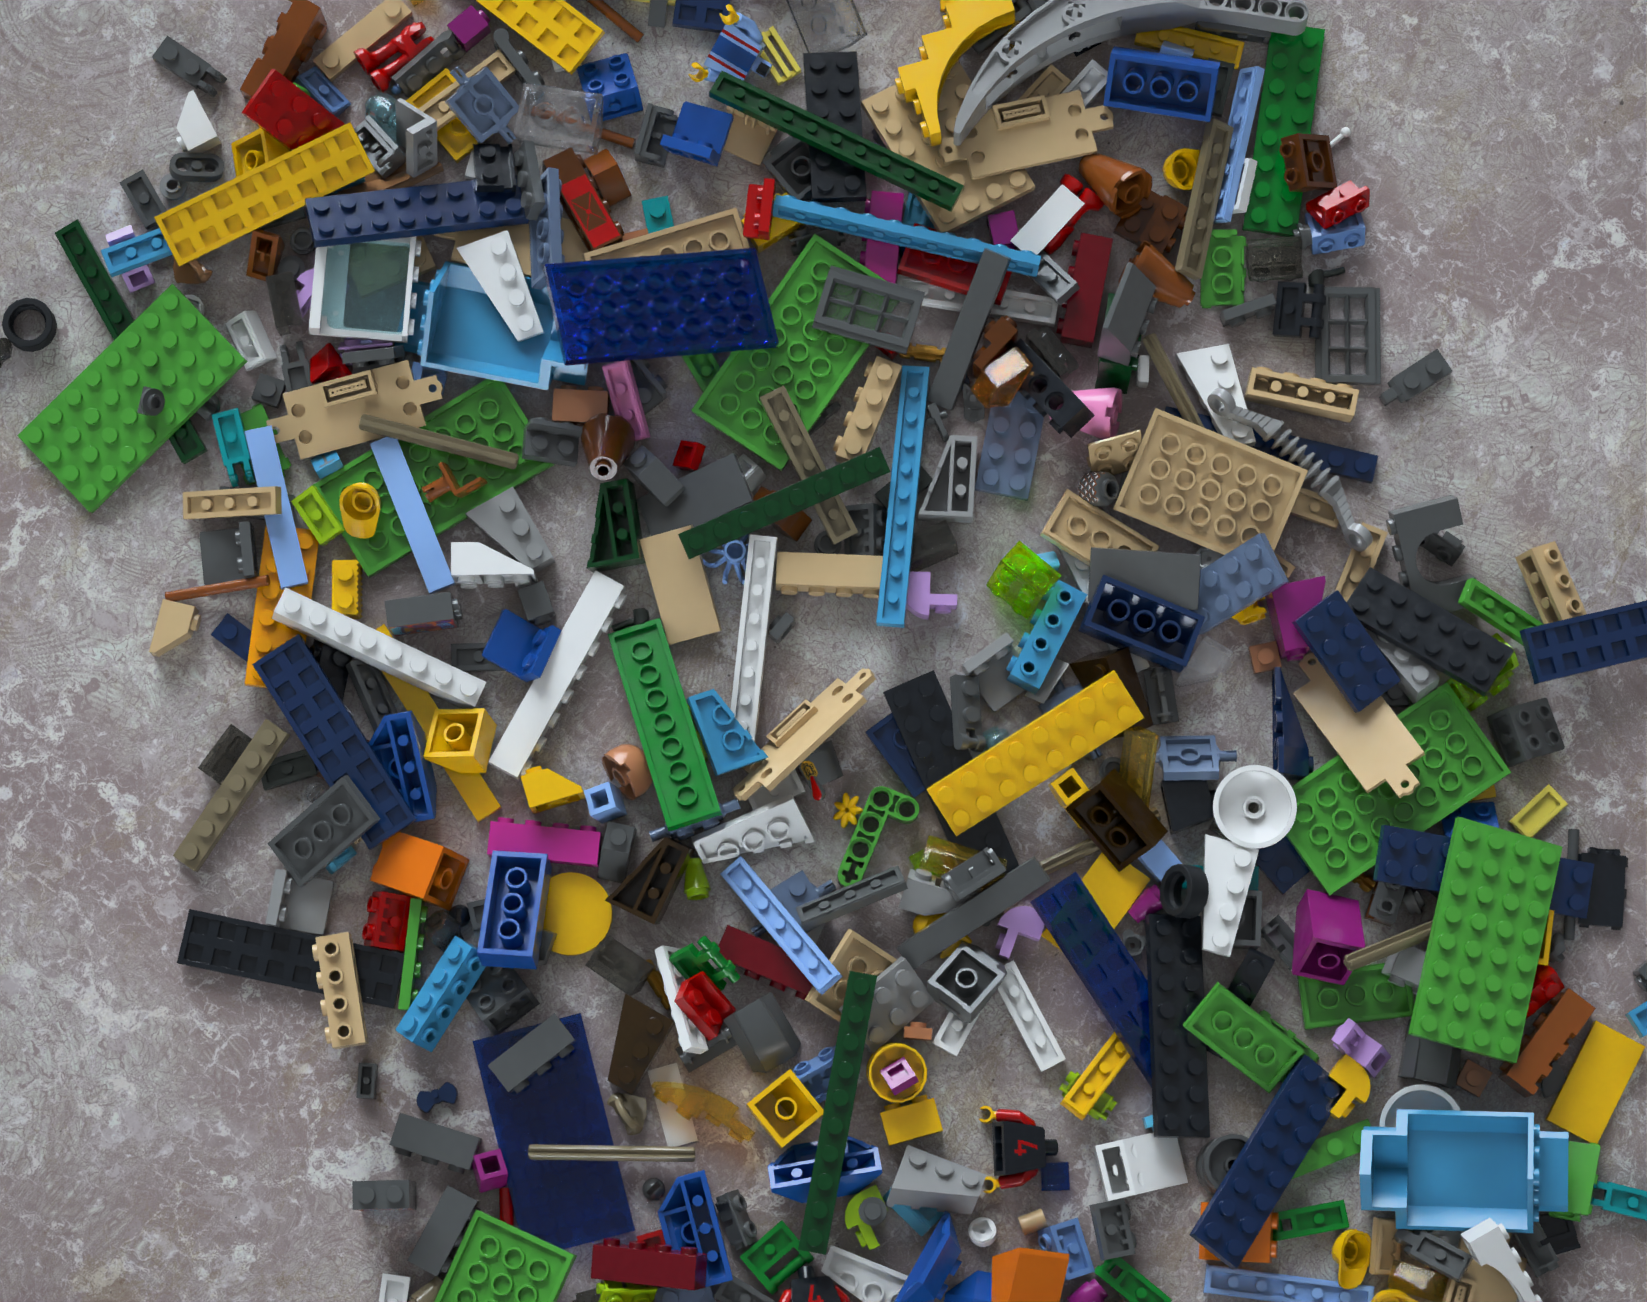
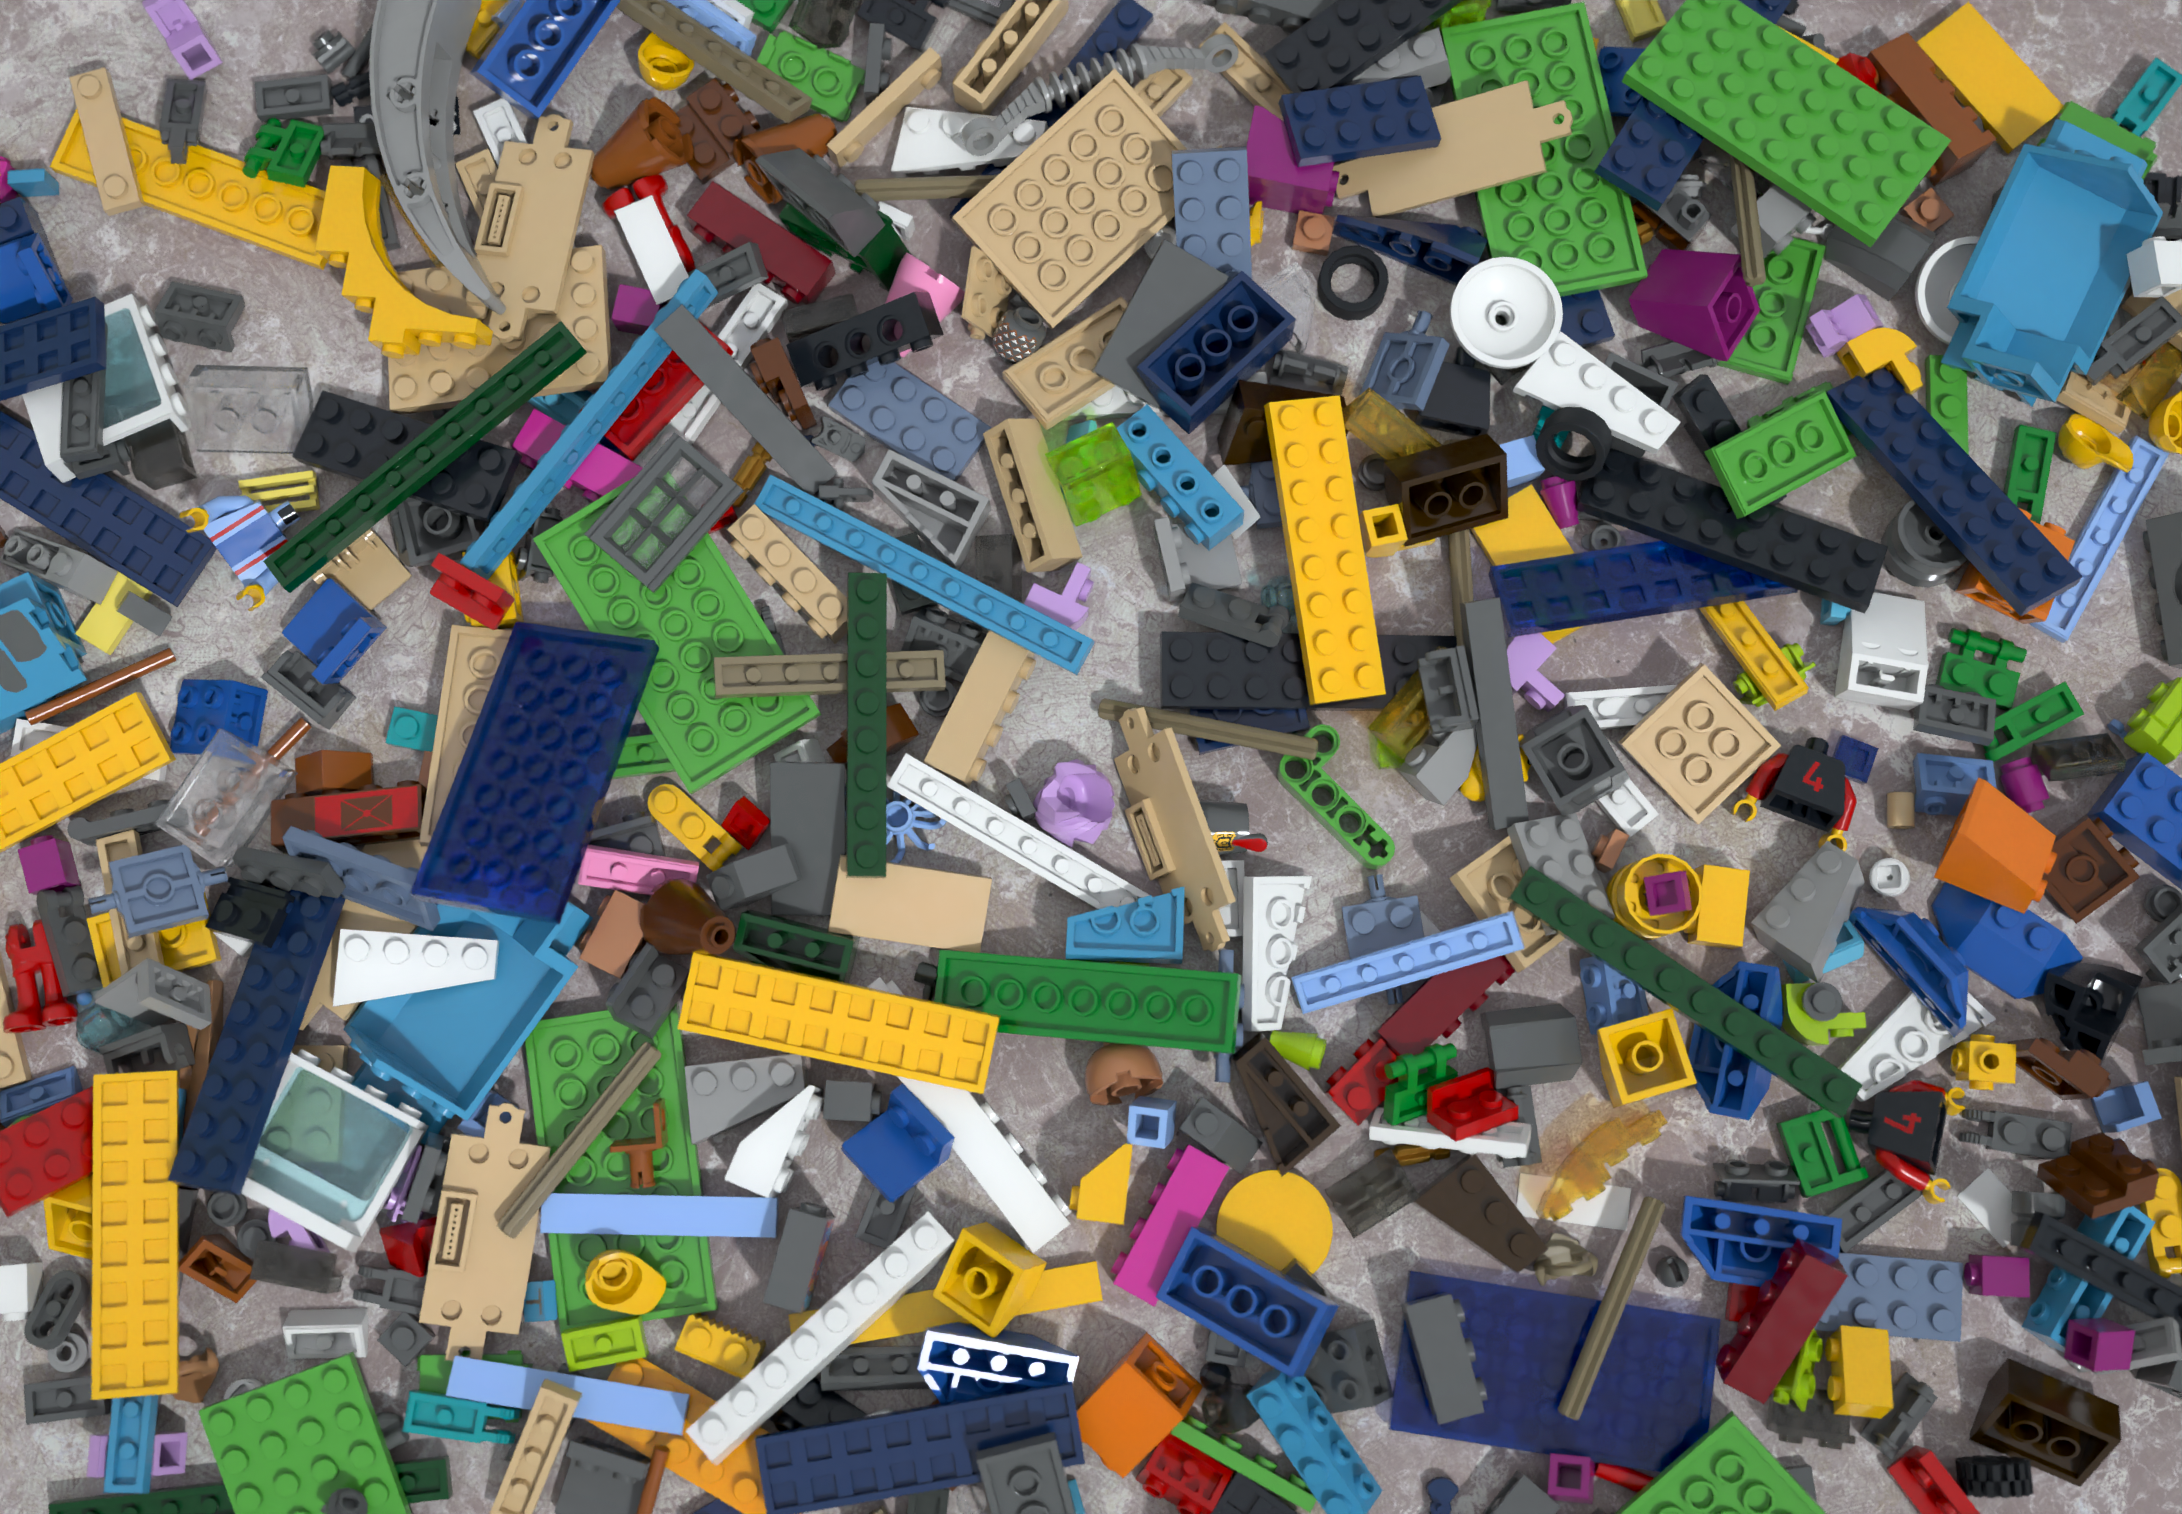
camera: 70 degrees left, 0 degrees up
(582, 572) = (838, 1022): none -> yellow plate
(646, 1215) = (1704, 1295): clear tile -> none
(672, 421) = (691, 825): none -> yellow plate
(687, 929) = (1363, 1084): none -> red bracket
(794, 662) = (1075, 803): none -> lavender hair
(847, 810) = (1289, 818): yellow plant -> none
(851, 898) = (1411, 858): dark grey tile -> none
(882, 732) = (1216, 730): none -> dark tan axle
(989, 544) = (1032, 495): none -> tan brick
(1001, 379) = (830, 385): clear orange slope -> none
(1016, 1063) = (1699, 743): none -> tan plate
(1149, 1246) = (1968, 675): none -> green plate
(1185, 317) = (850, 142): none -> tan plate
(1251, 681) = (1362, 257): none -> black tyre

